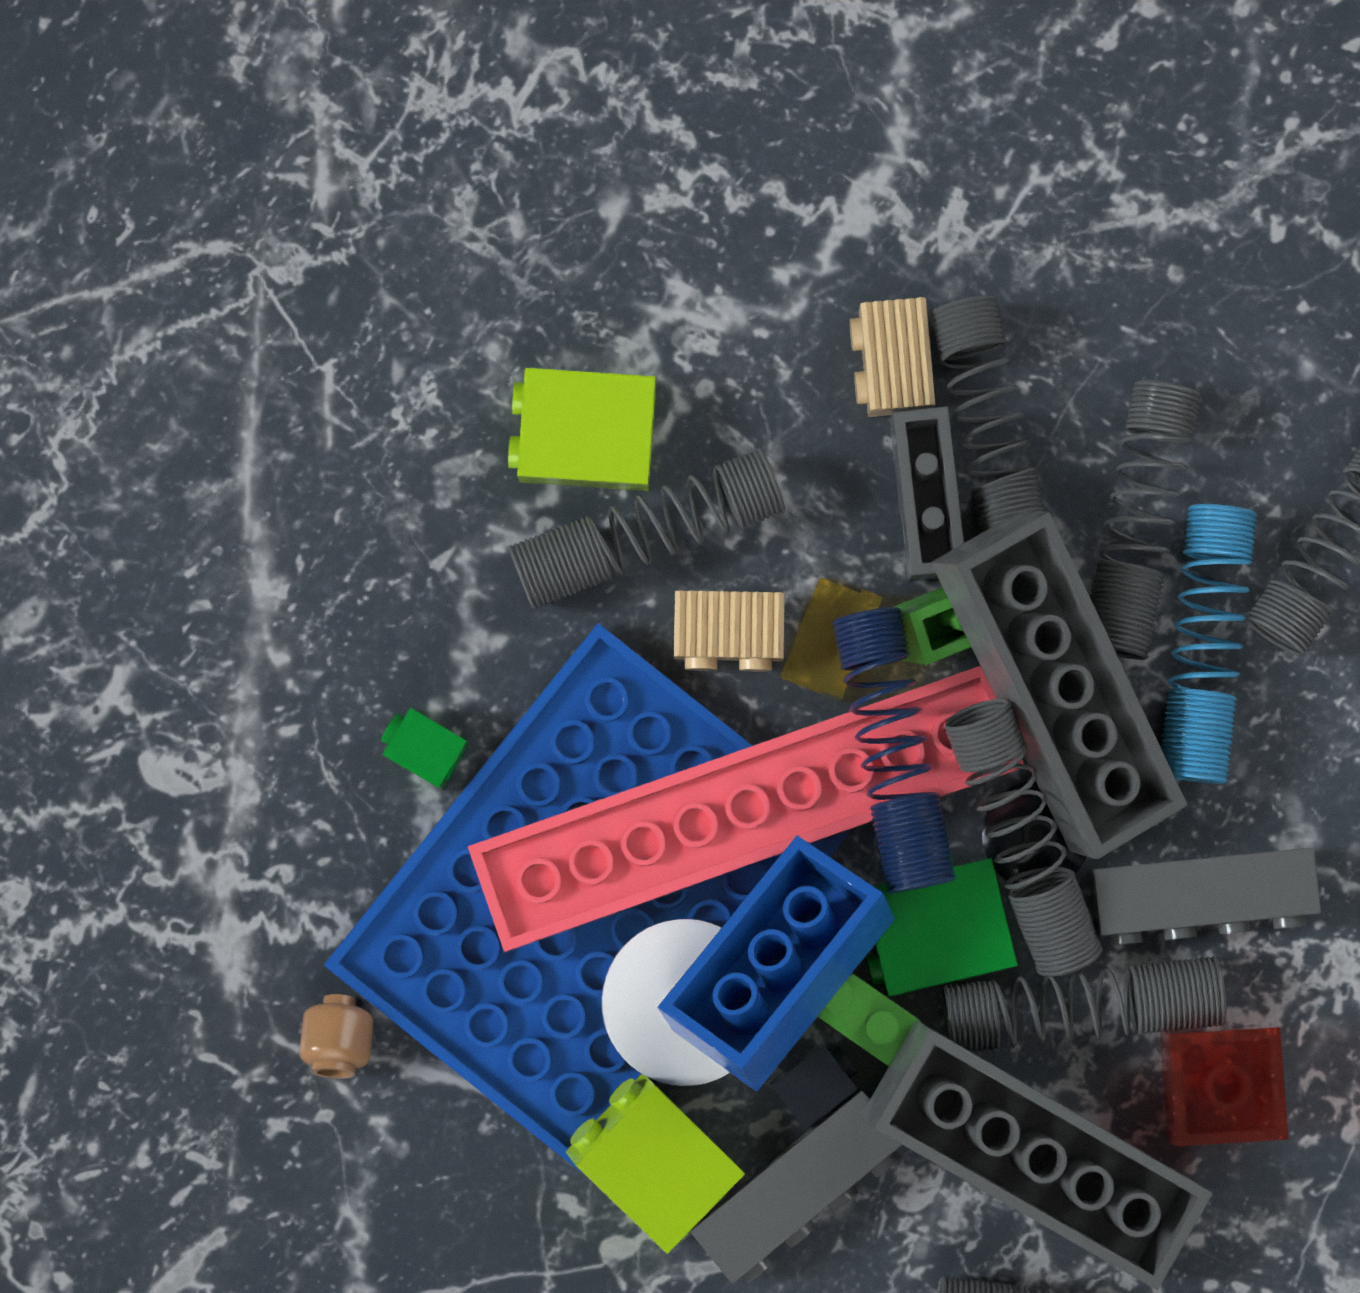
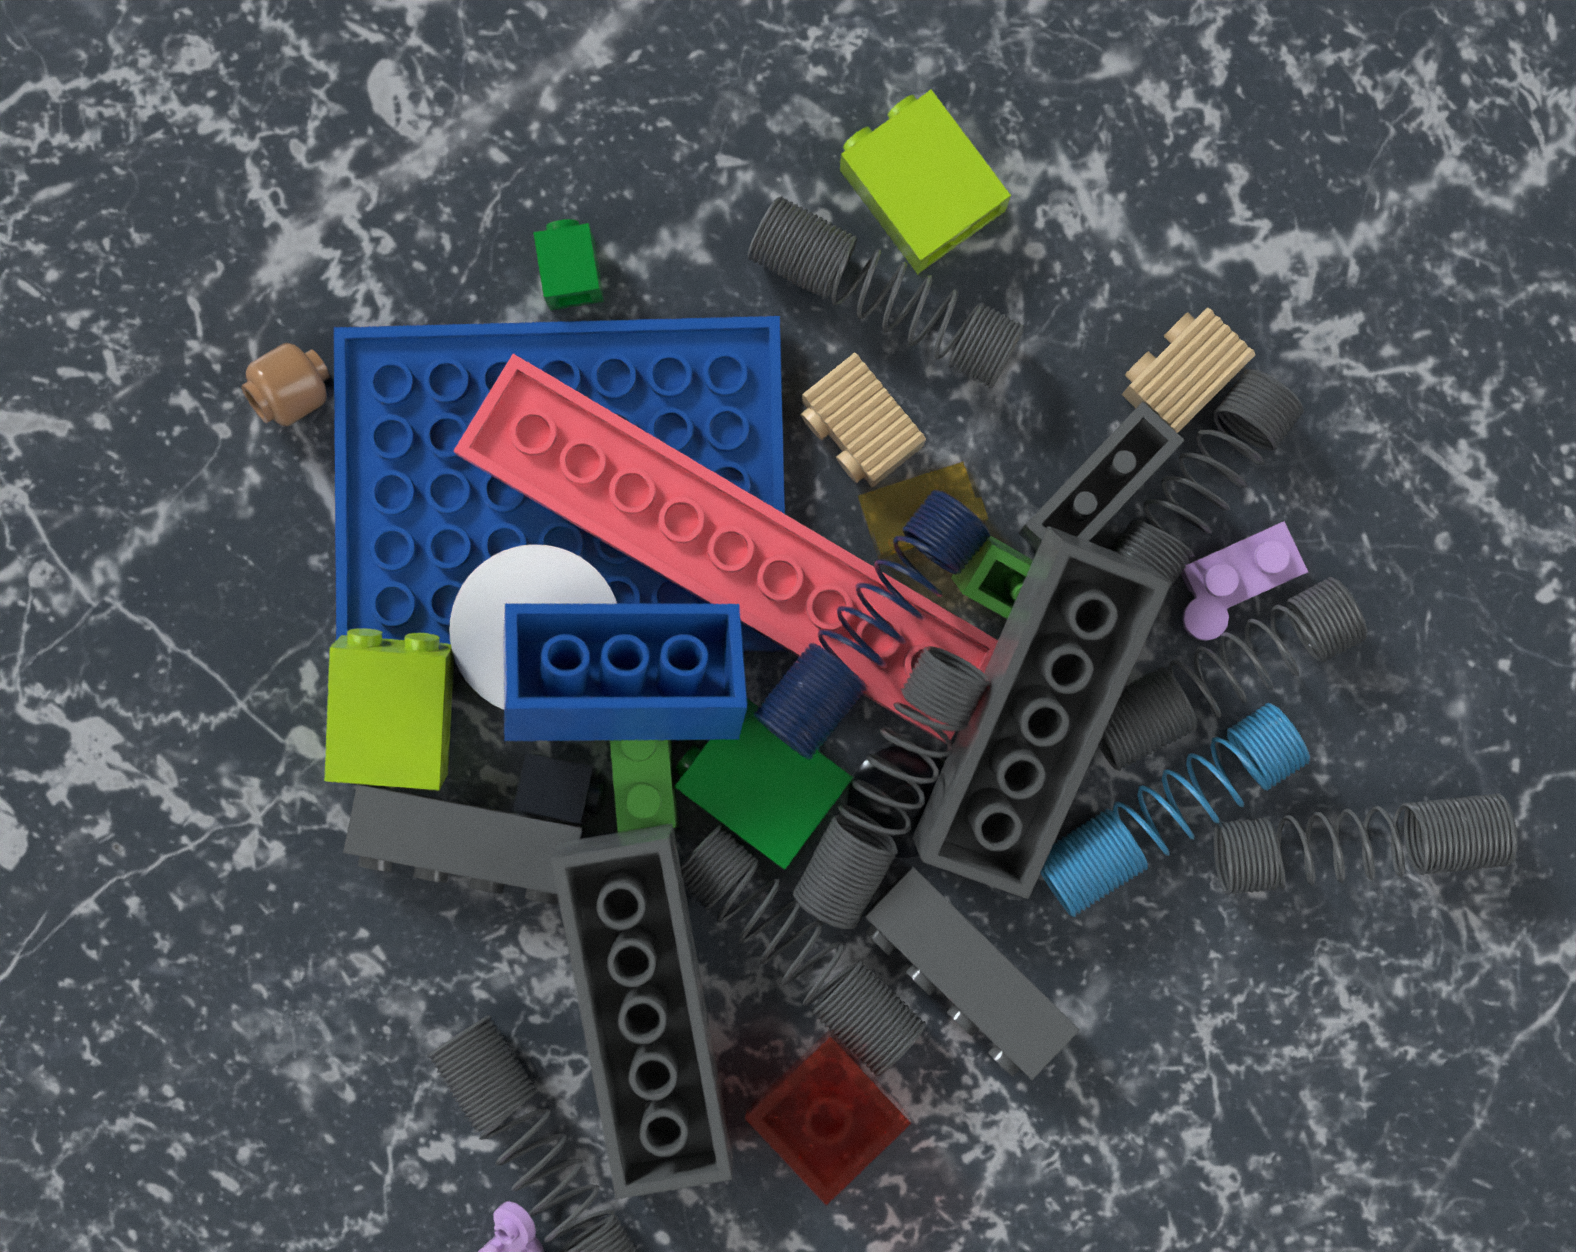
camera: 50 degrees right, 0 degrees up
(1075, 447) = (1236, 576): none -> lavender hinge

